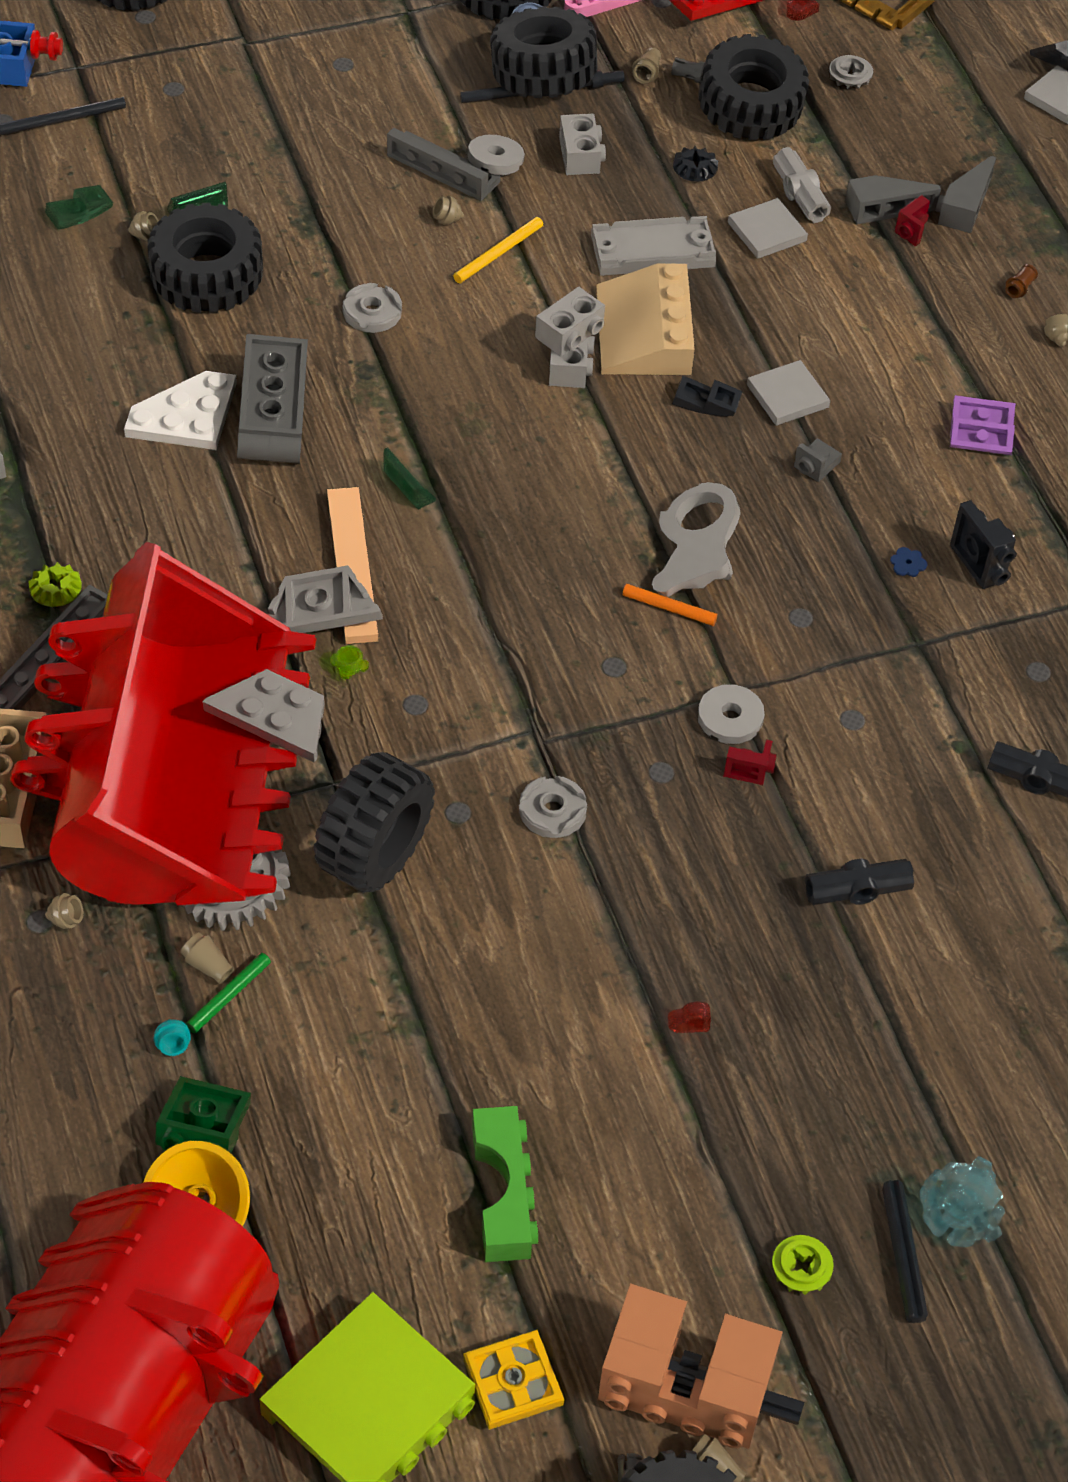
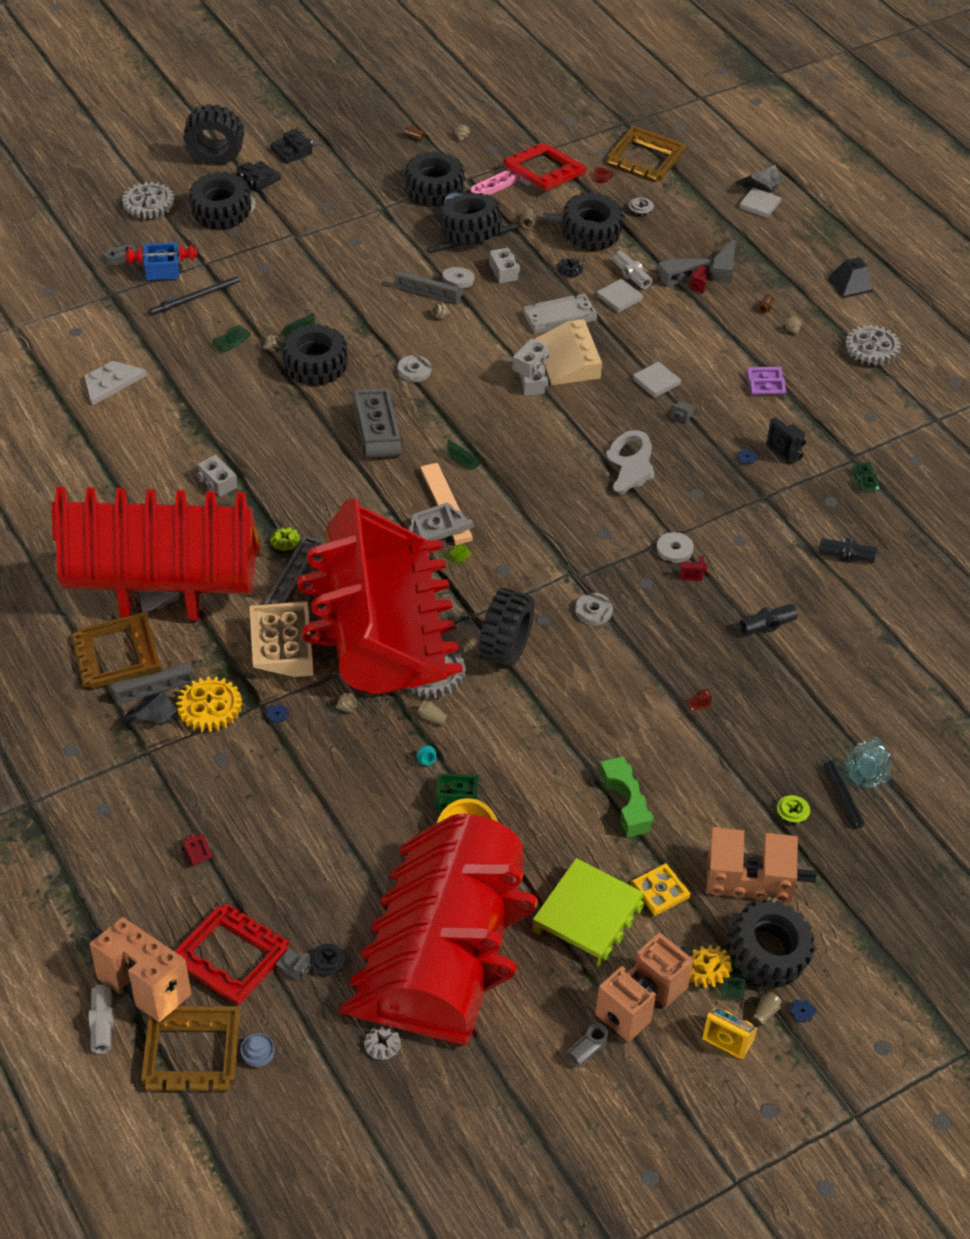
camera: 10 degrees left, 5 degrees down
(185, 413) = (327, 439): white plate -> none
(223, 997) = (449, 728): green bar -> none
(273, 710) = (433, 581): light grey wing -> none
(497, 250) = (474, 328): yellow bar -> none
(669, 604) = (625, 497): orange bar -> none
(714, 400) = (618, 389): black slope -> none

